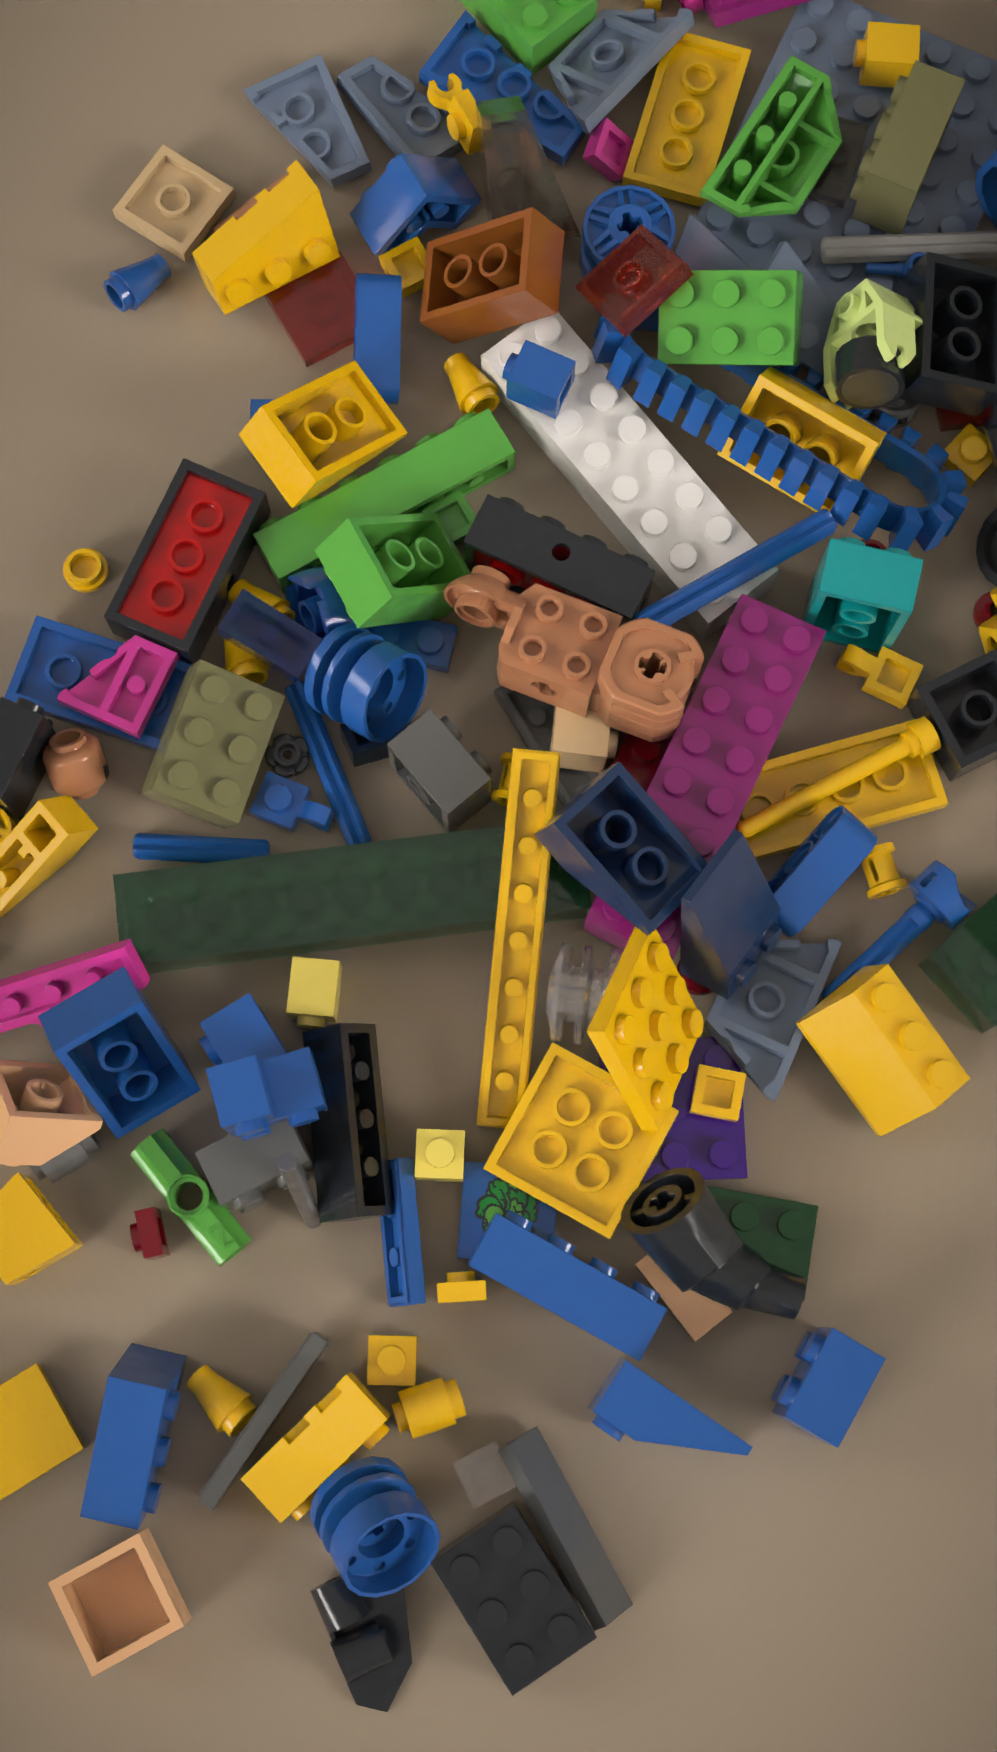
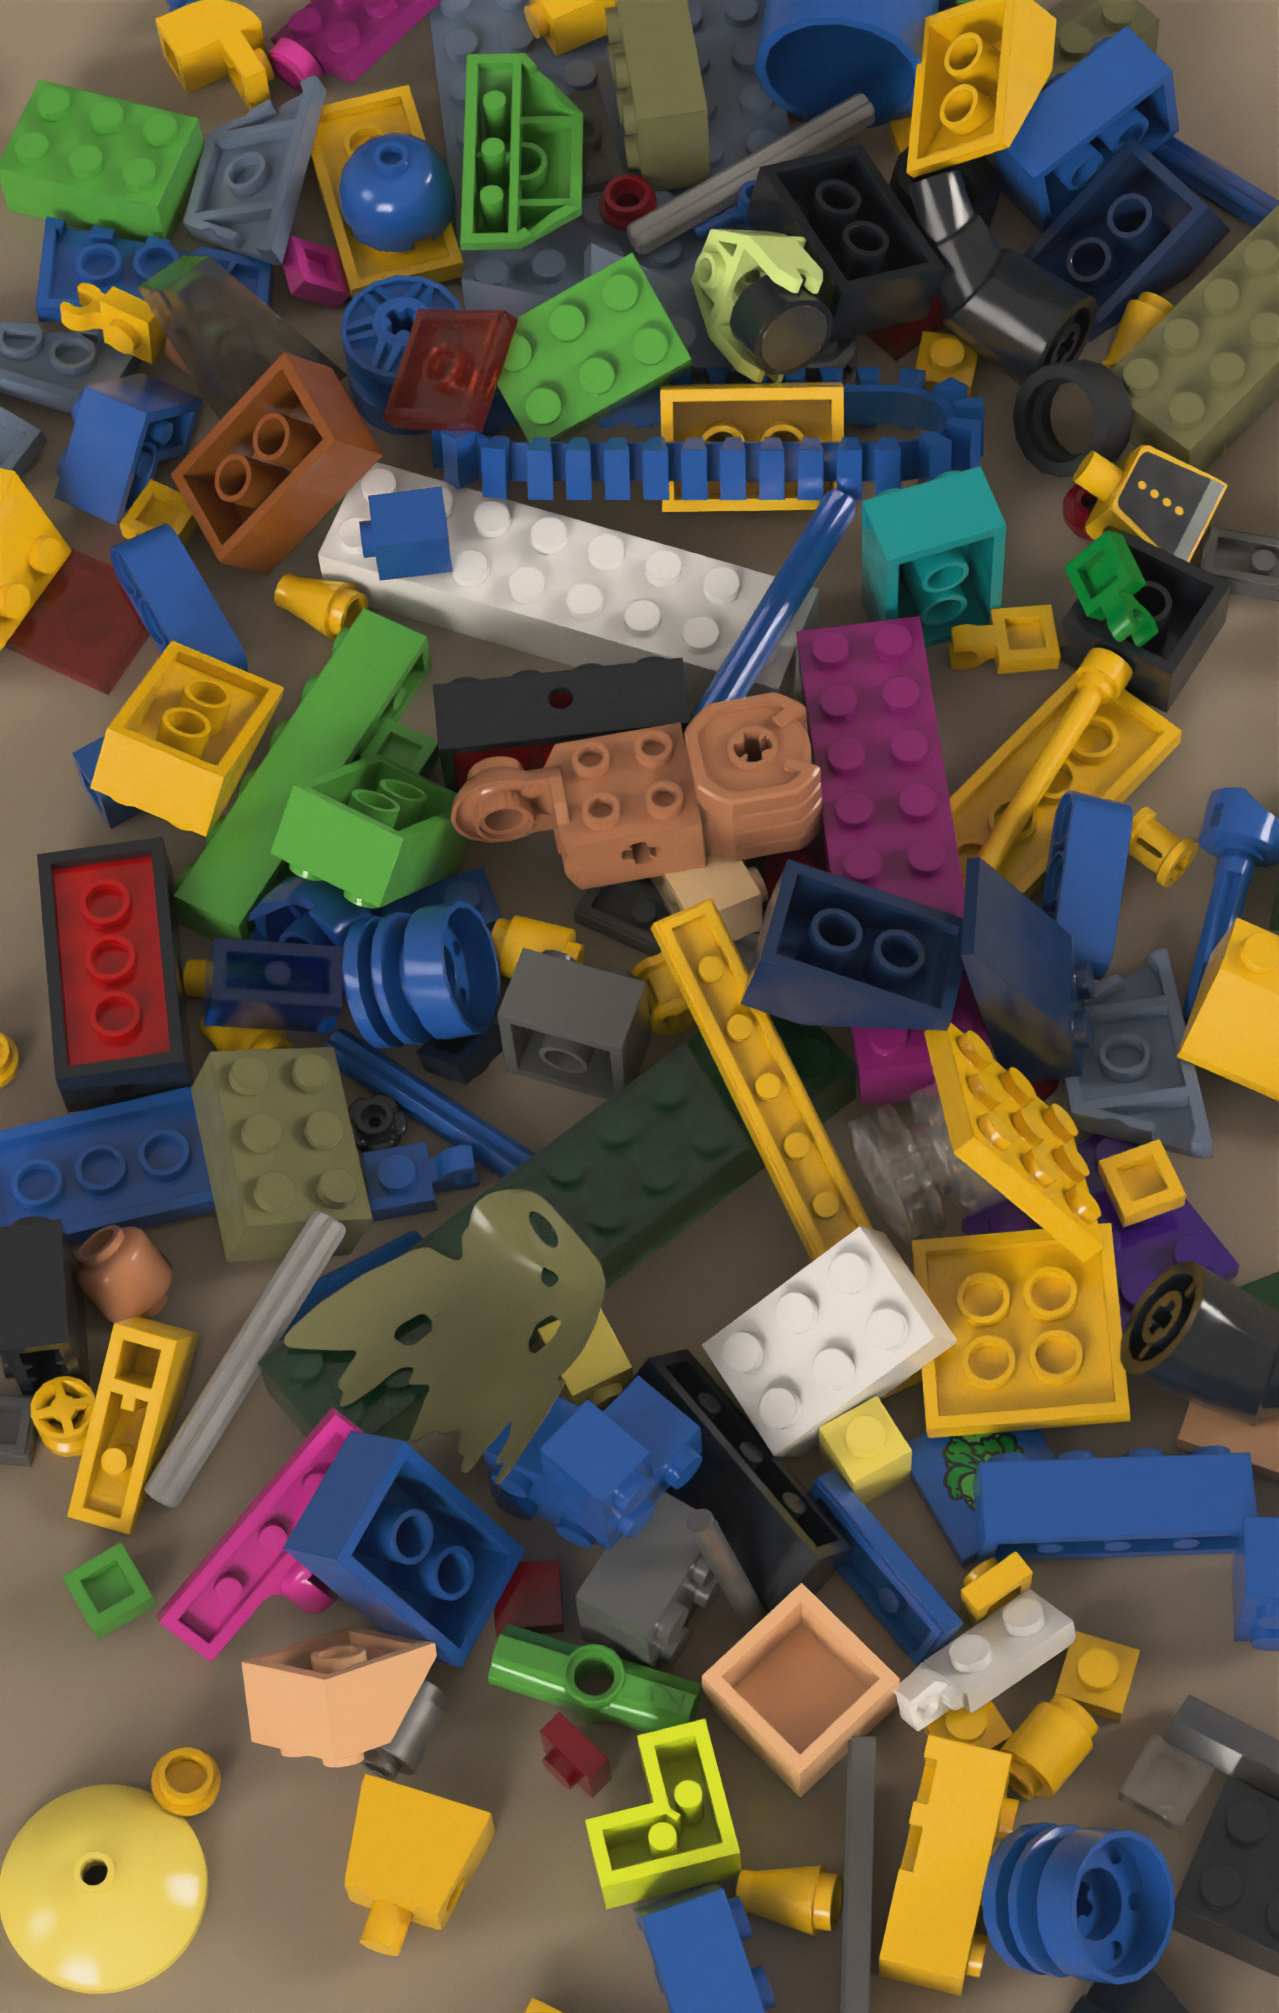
camera: 25 degrees left, 15 degrees down
(115, 861) = (240, 1363): none -> light grey axle
(124, 687) = (129, 1150): dark pink wing -> none
(184, 1323) = (677, 1838): none -> neon yellow brick
(190, 1118) = (532, 1599): none -> dark red tile
(239, 954) = (479, 1343): none -> olive piece
(302, 1282) = (800, 1689): none -> light nougat piece
(426, 1331) = (985, 1660): none -> white hinge
(453, 698) = (523, 932): none -> yellow brick
(457, 1079) = (828, 1341): none -> white brick
(490, 1378) = (1098, 1675): none -> yellow plate
(691, 125) = (396, 192): none -> blue cylinder
(837, 210) = (624, 191): none -> dark red plate
(958, 682) = (1105, 583): none -> green plate

